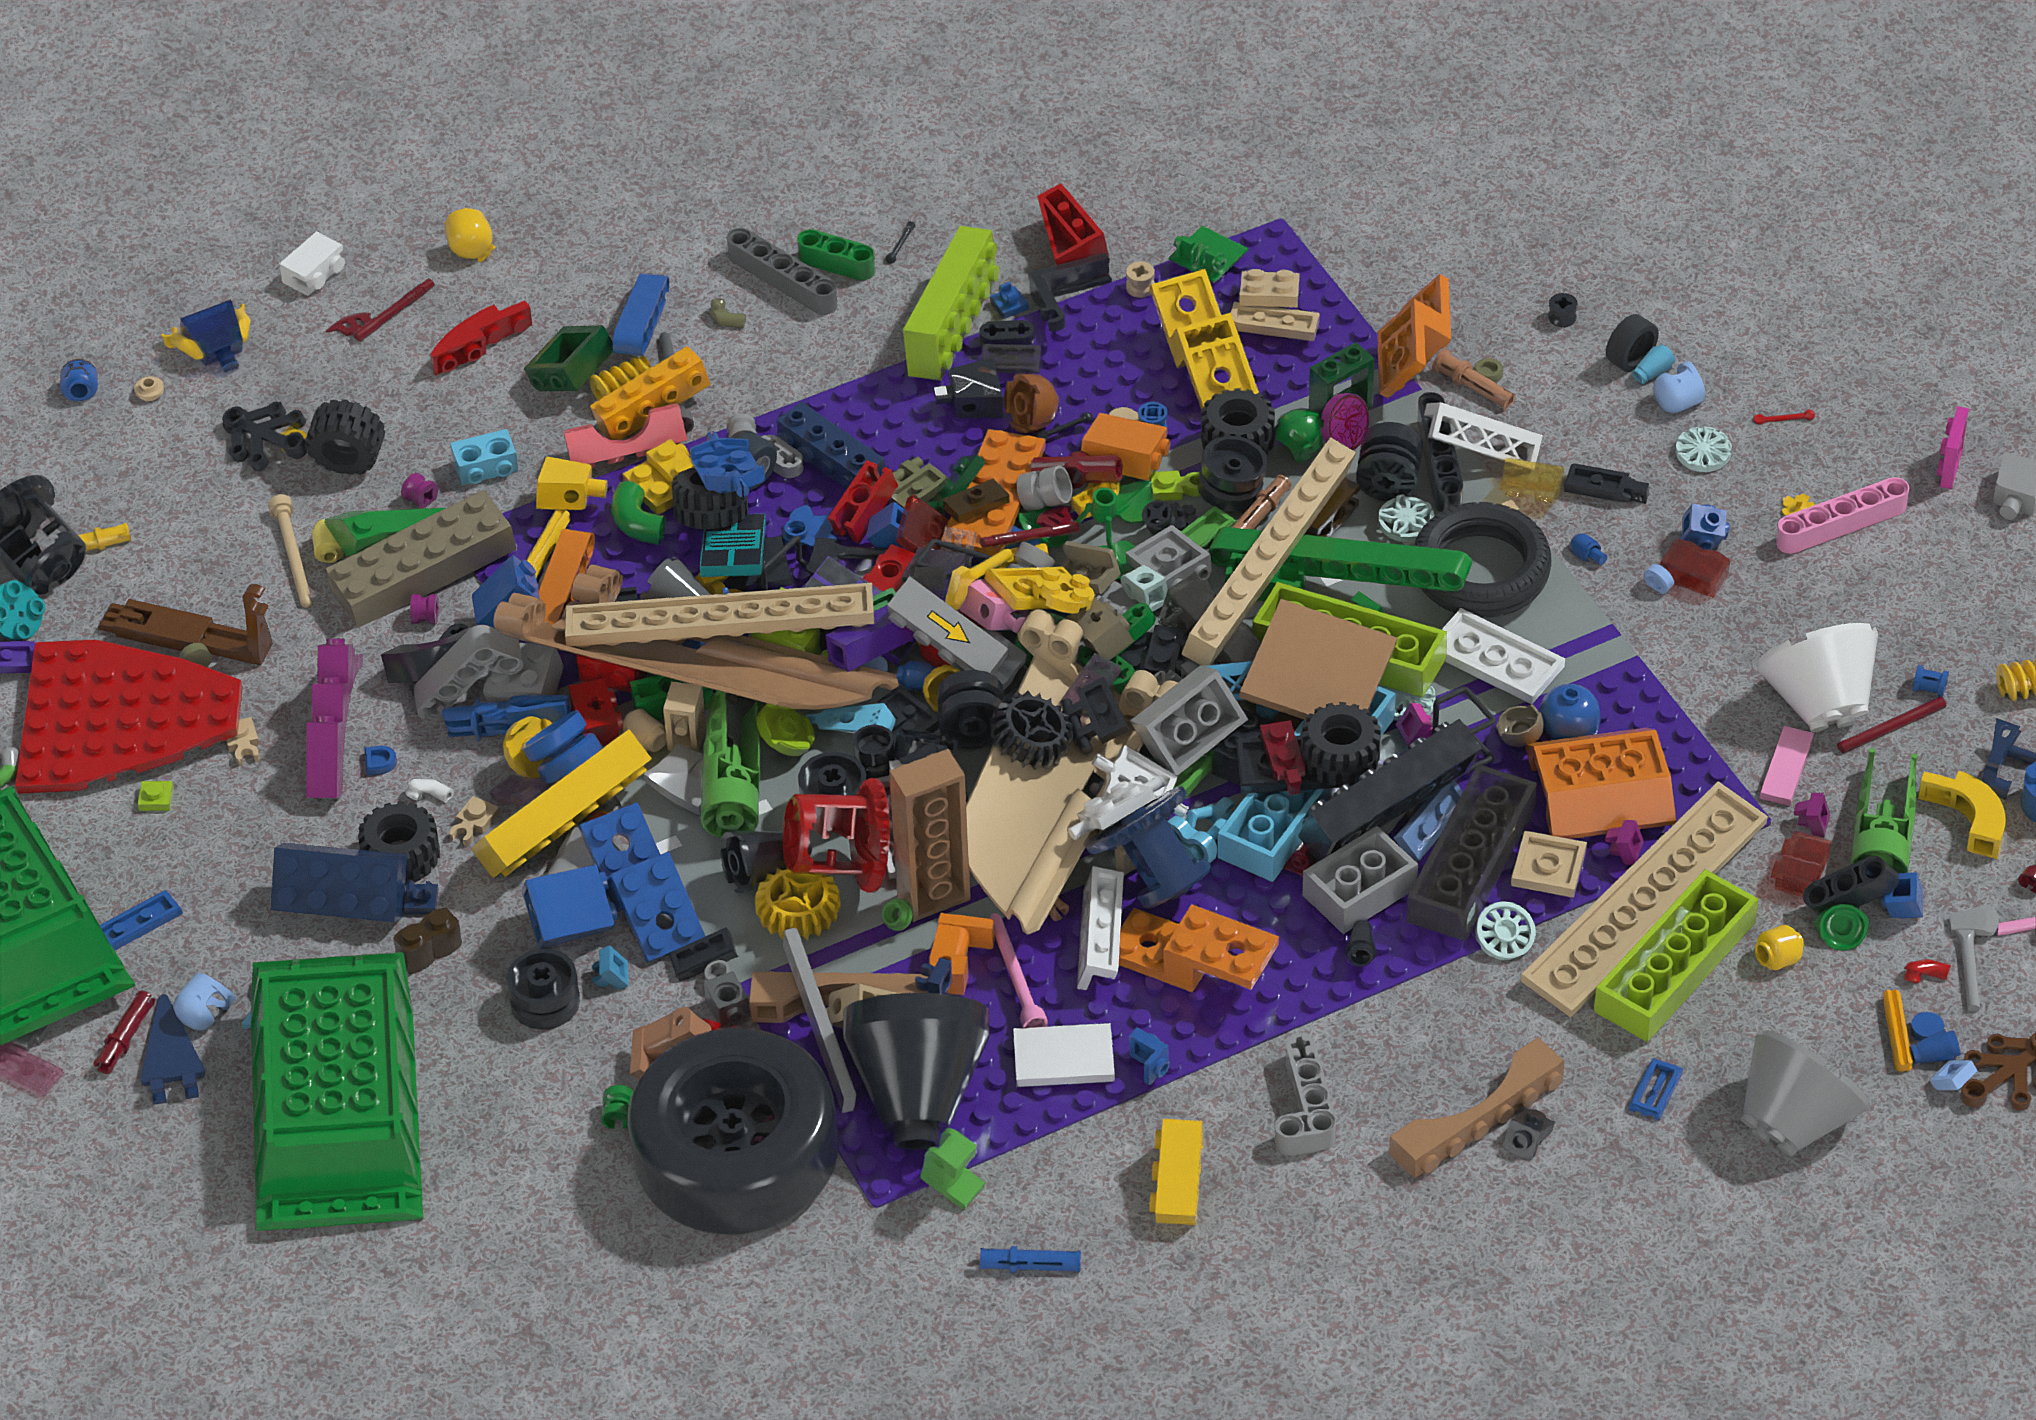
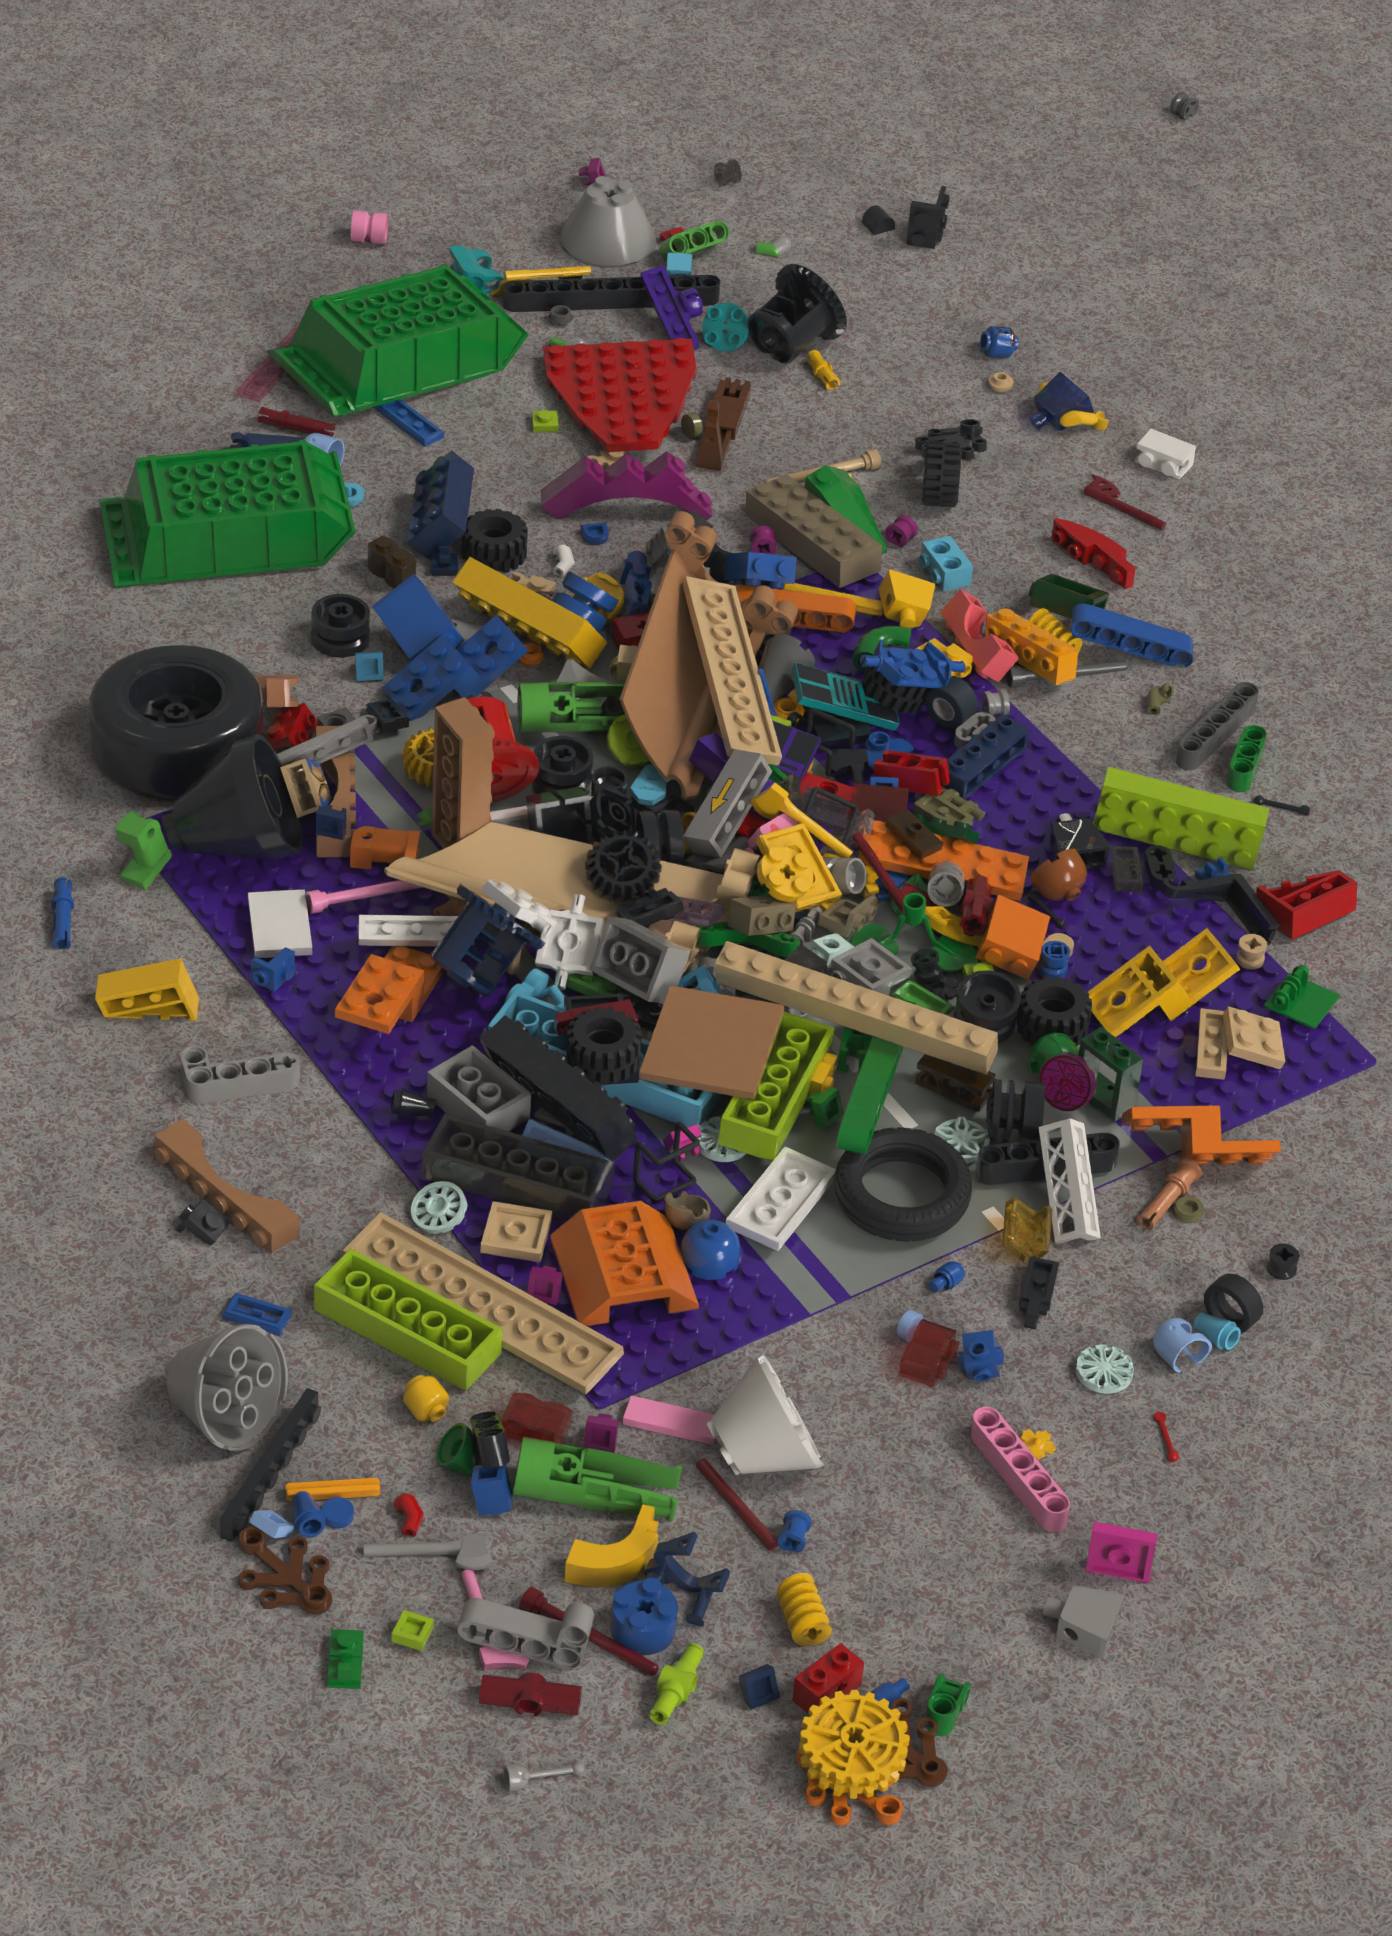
camera: 80 degrees right, 5 degrees down
(469, 234) = (1216, 533): yellow helmet -> none
(1885, 1077) = (266, 1470): none -> black plate

